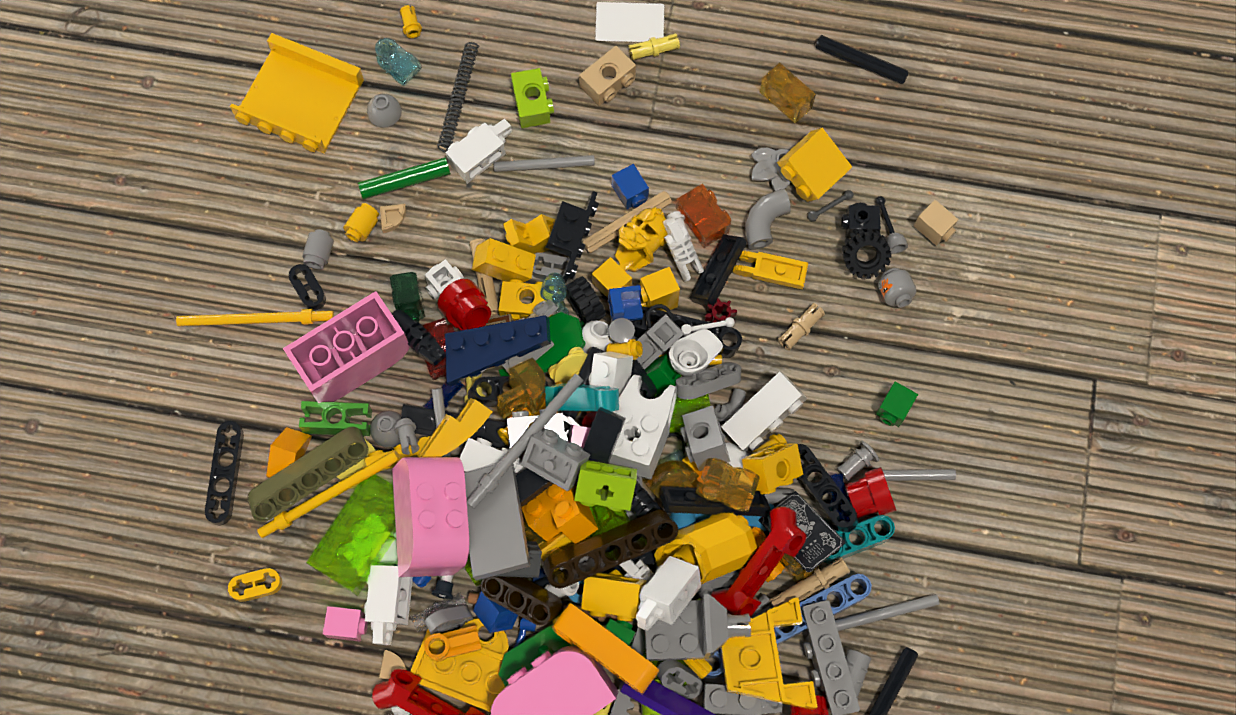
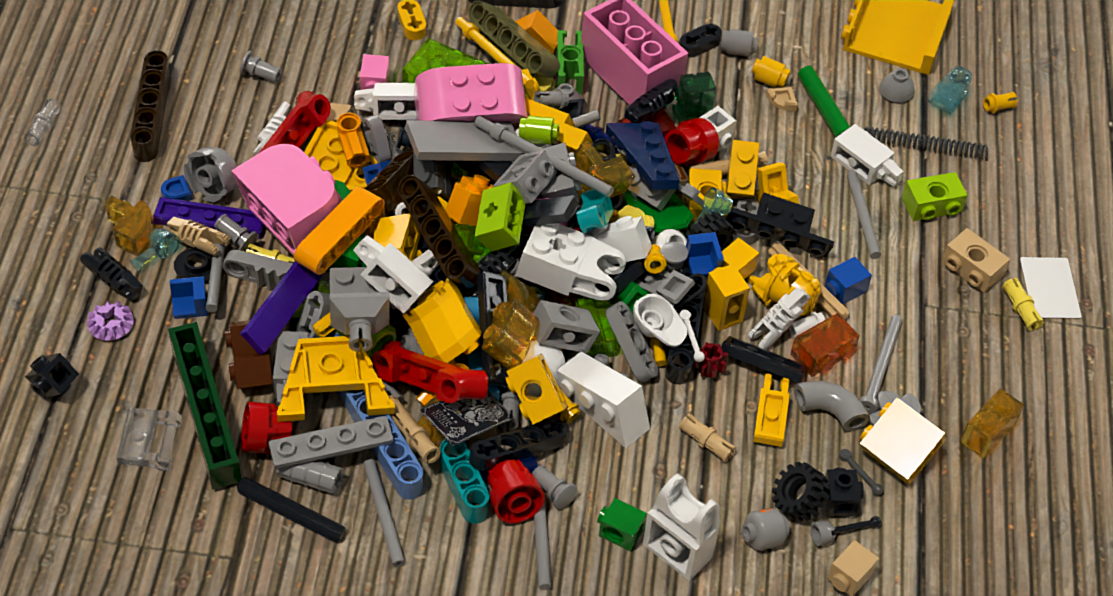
camera: 85 degrees right, 20 degrees down
(475, 446) = (538, 130): none -> lime brick
(761, 188) = (869, 400): none -> light grey bar
(862, 59) = (1057, 507): black axle -> none
(918, 350) = (682, 528): none -> white brick

